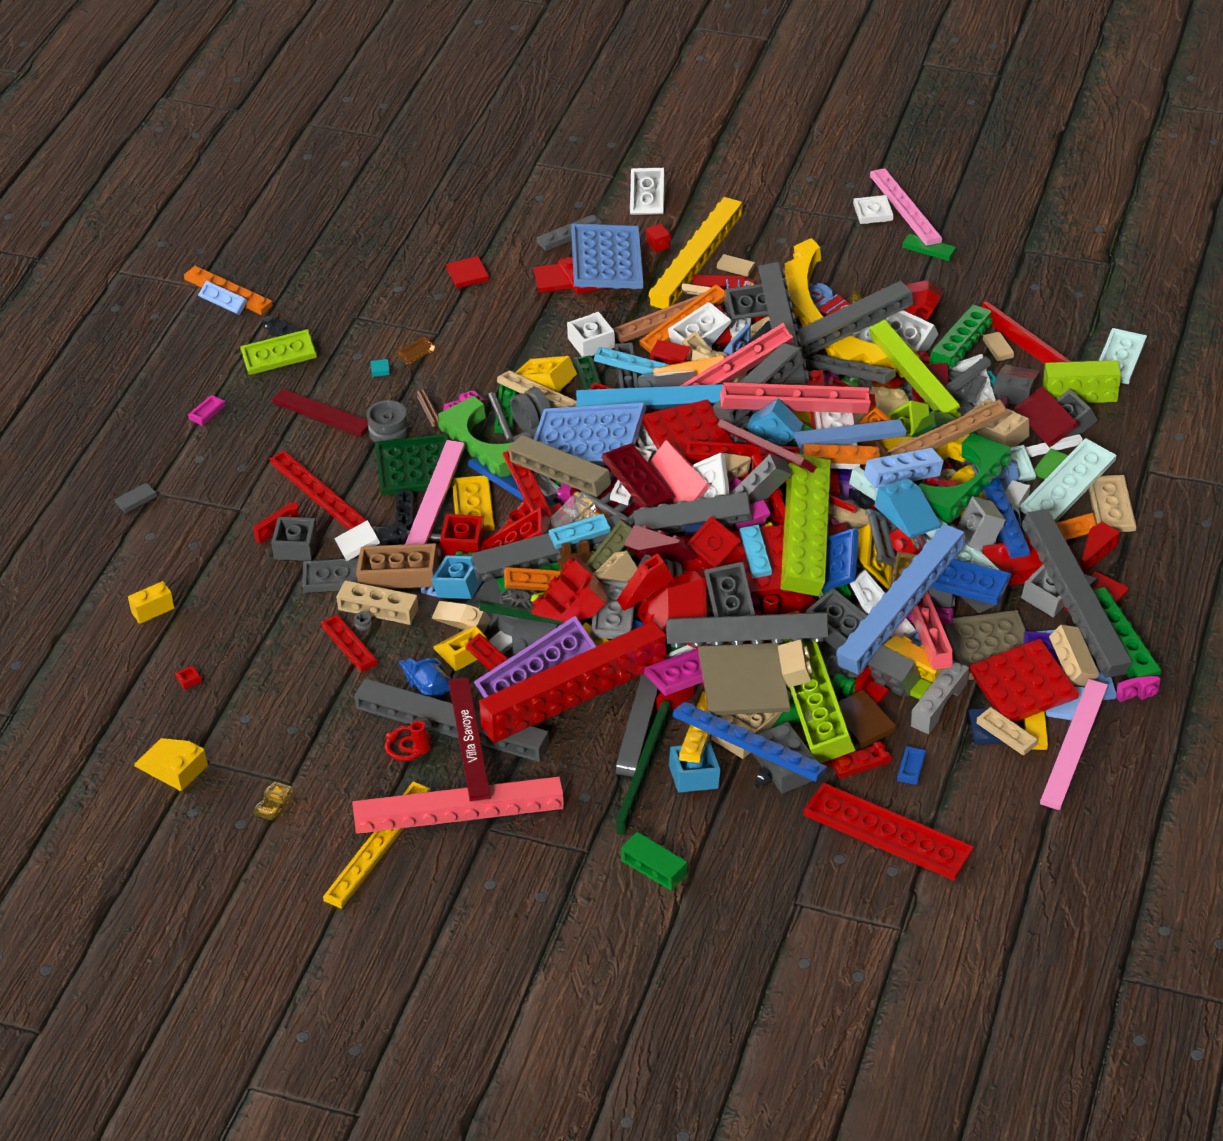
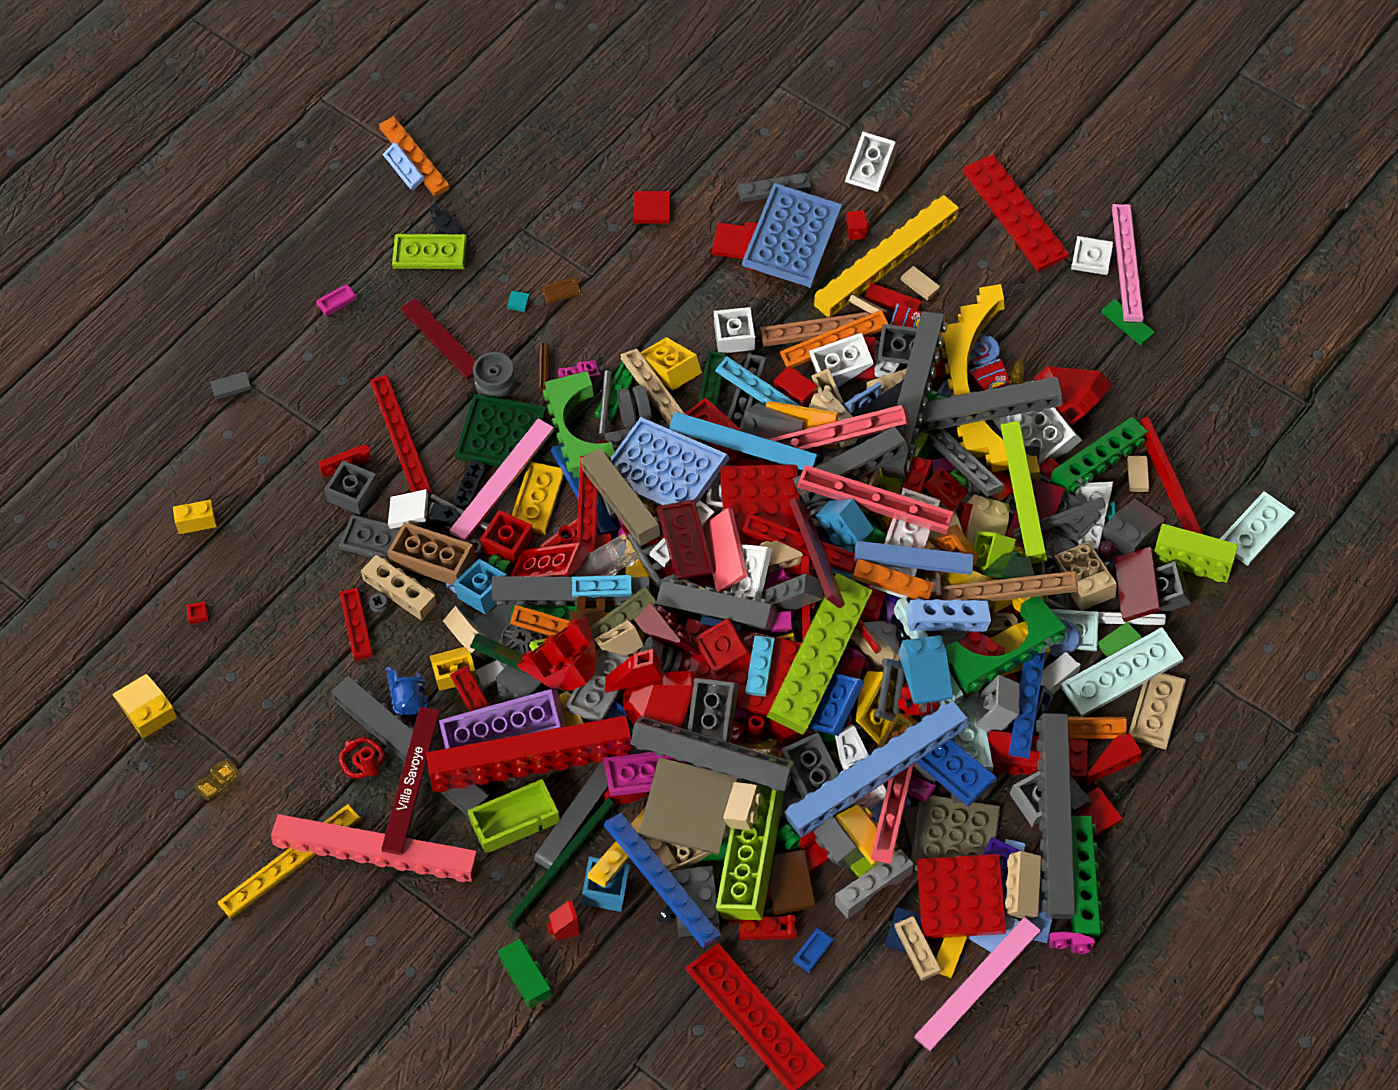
camera: 20 degrees right, 15 degrees up
(580, 741) = (513, 816): none -> lime piece
(672, 807) = (563, 922): none -> red slope
(790, 198) = (1015, 213): none -> red plate

